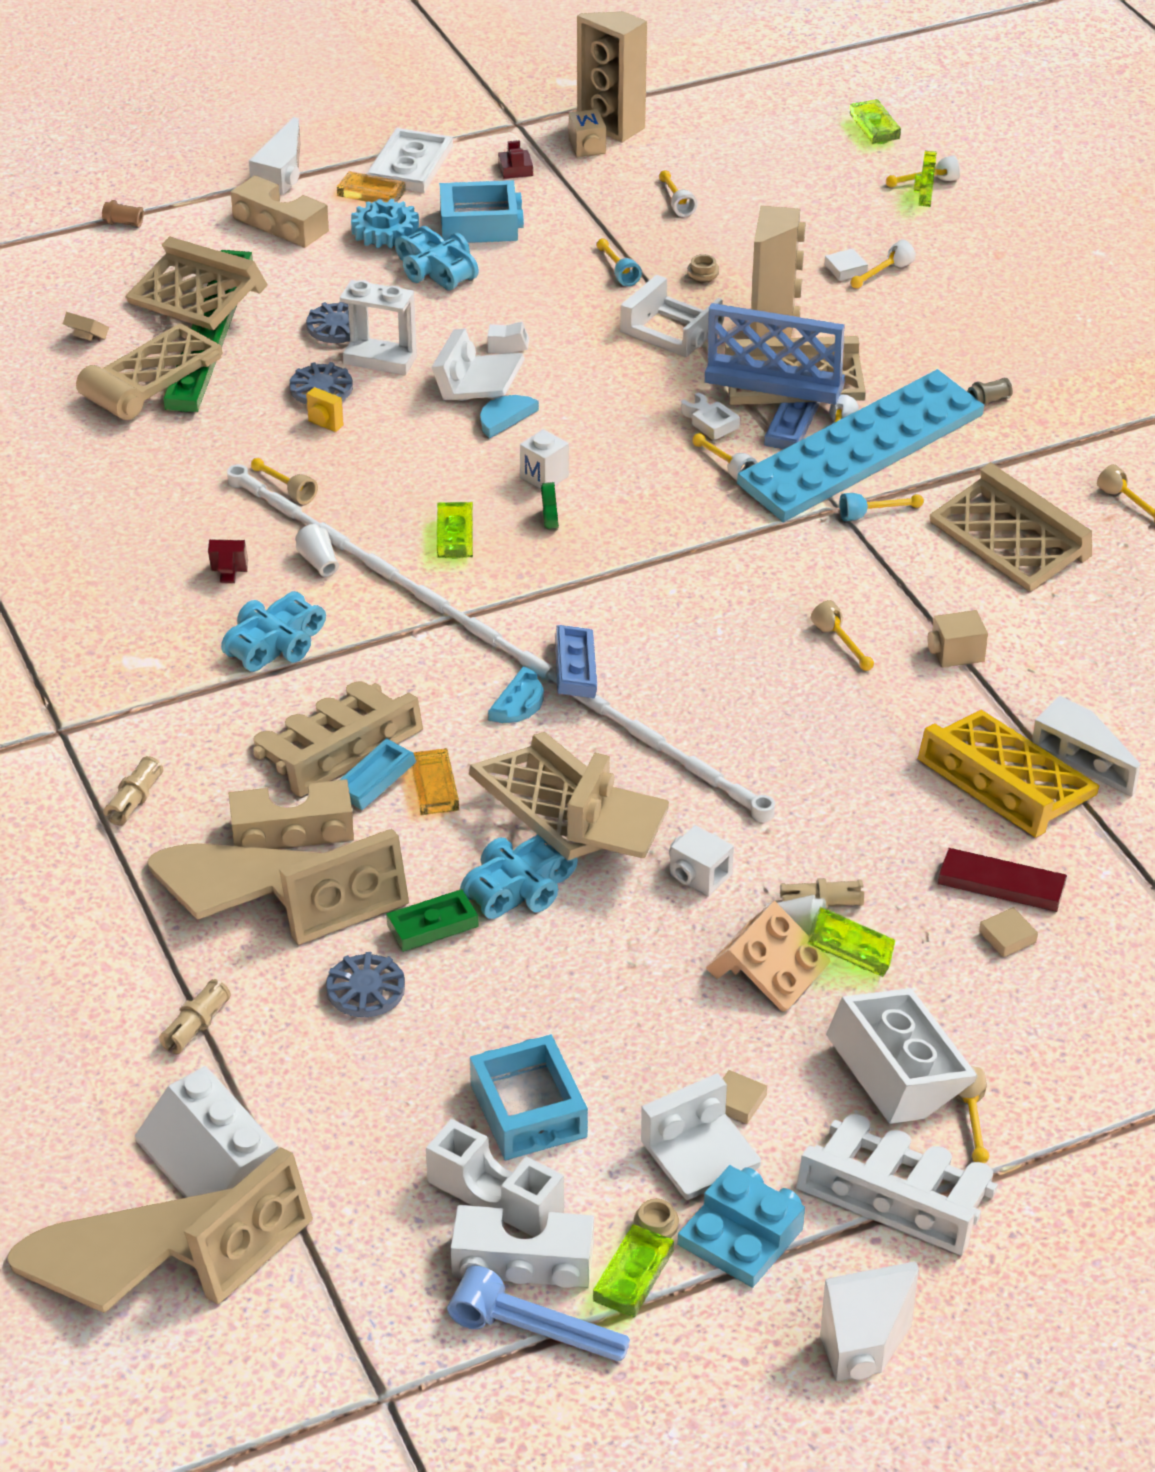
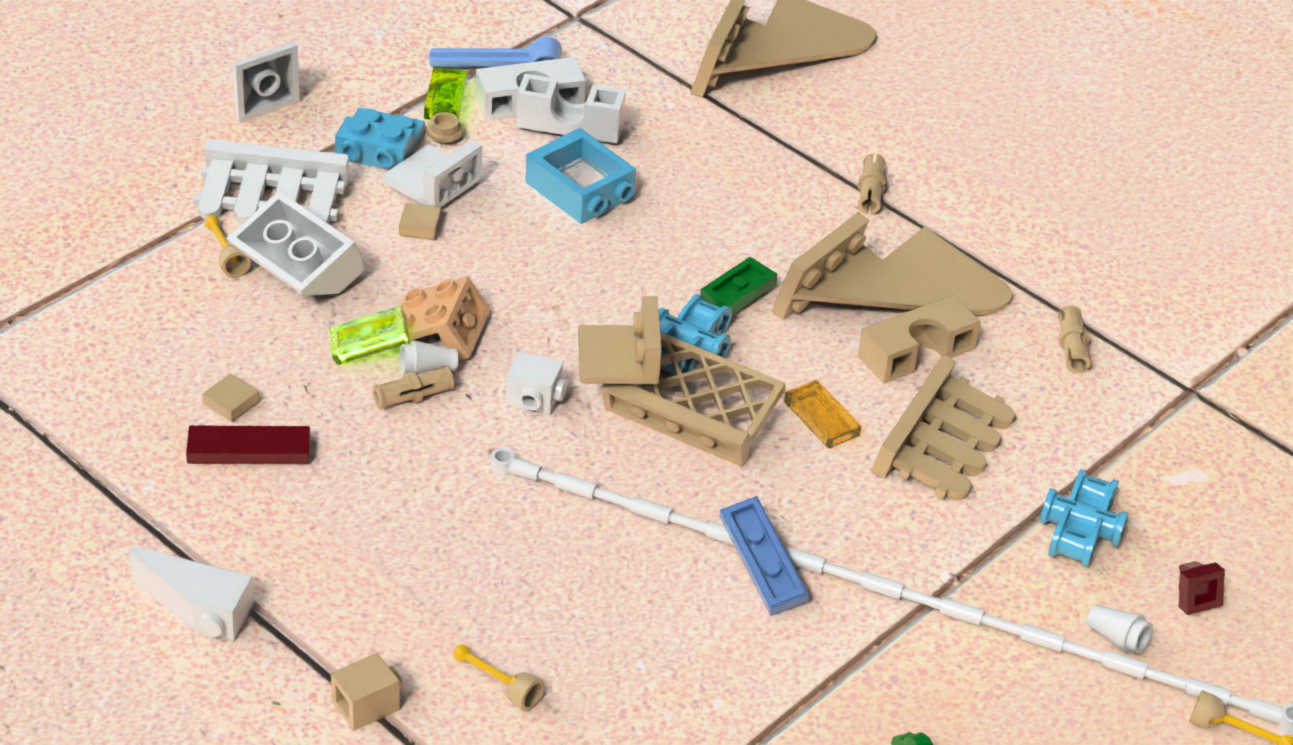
camera: 155 degrees right, 0 degrees up
(203, 1136) = (787, 105): white slope -> none
(365, 985) = (759, 235): sand blue wheel -> none
(377, 772) = (877, 399): medium azure tile -> none
(454, 530) = (998, 697): clear neon green plate -> none
(519, 699) = (797, 521): medium azure tile -> none
(1000, 784) = (293, 528): yellow fence -> none

